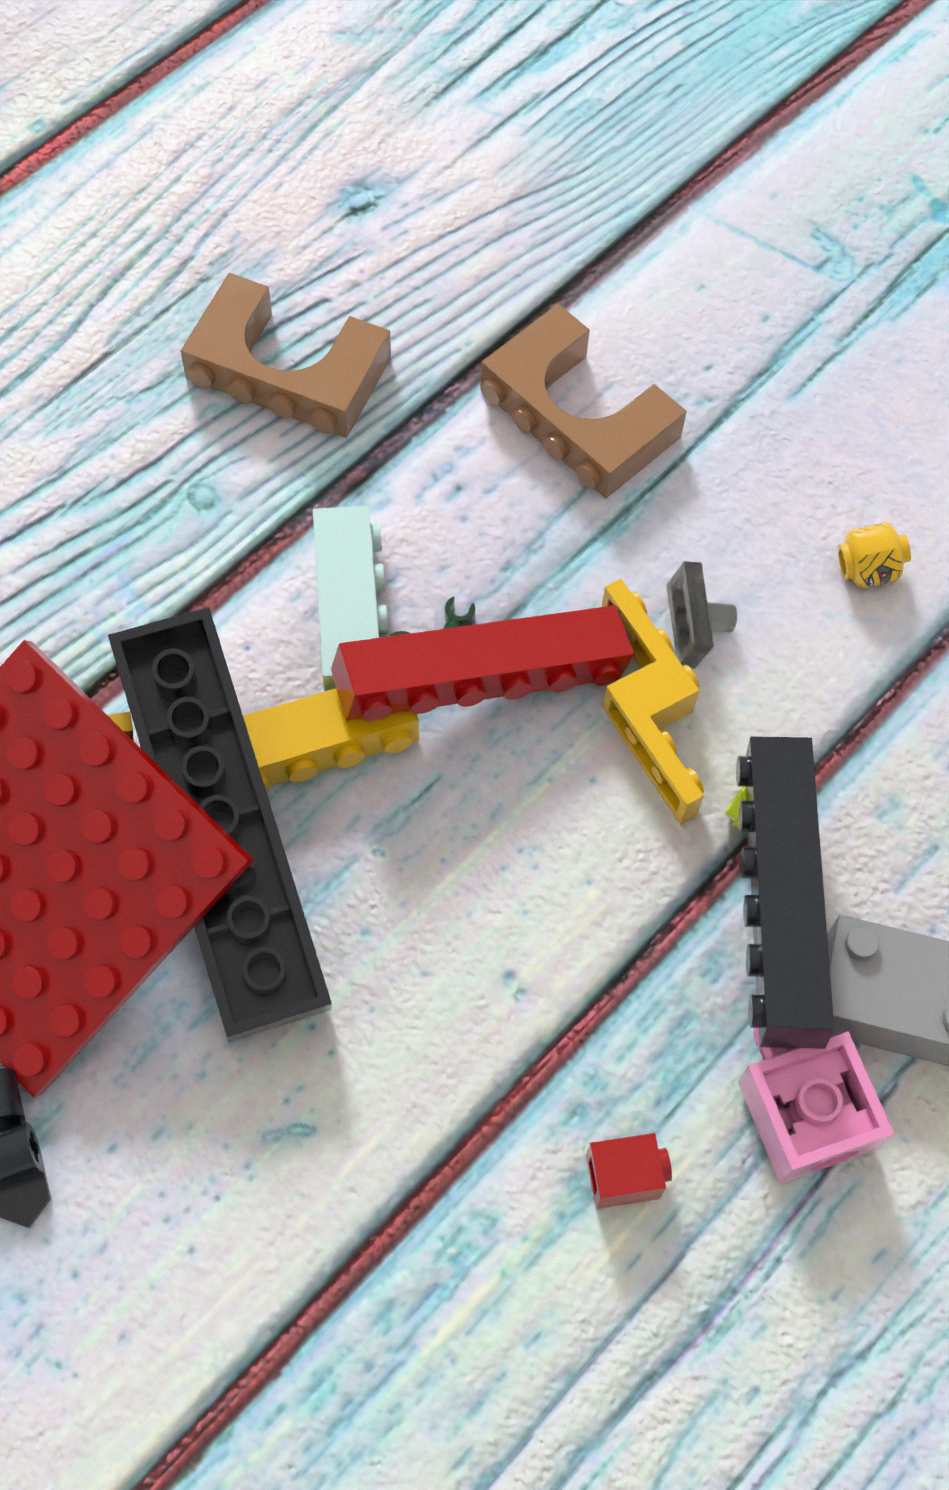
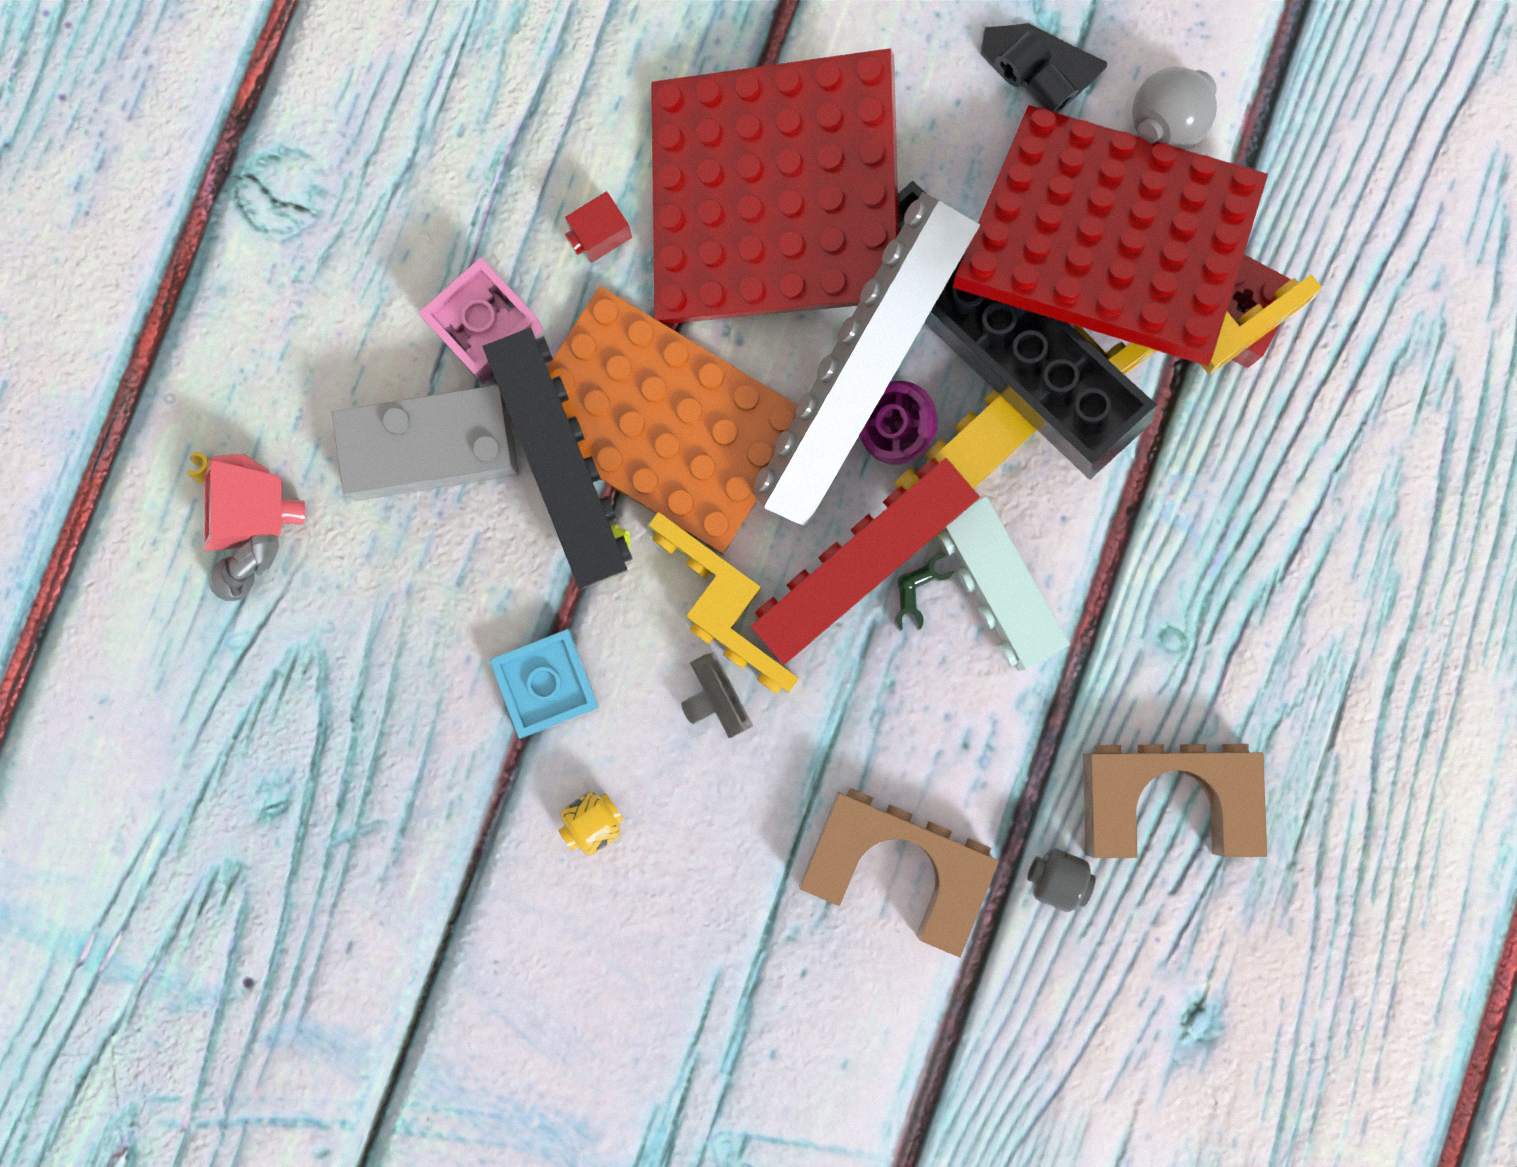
camera: 160 degrees right, 20 degrees up
(379, 787) = (900, 424): none -> magenta cone
(379, 846) = (864, 358): none -> brick
(391, 1115) = (773, 186): none -> red plate
(428, 333) = (1061, 880): none -> dark grey head
(629, 922) = (668, 418): none -> orange plate
(875, 702) = (544, 683): none -> medium azure plate

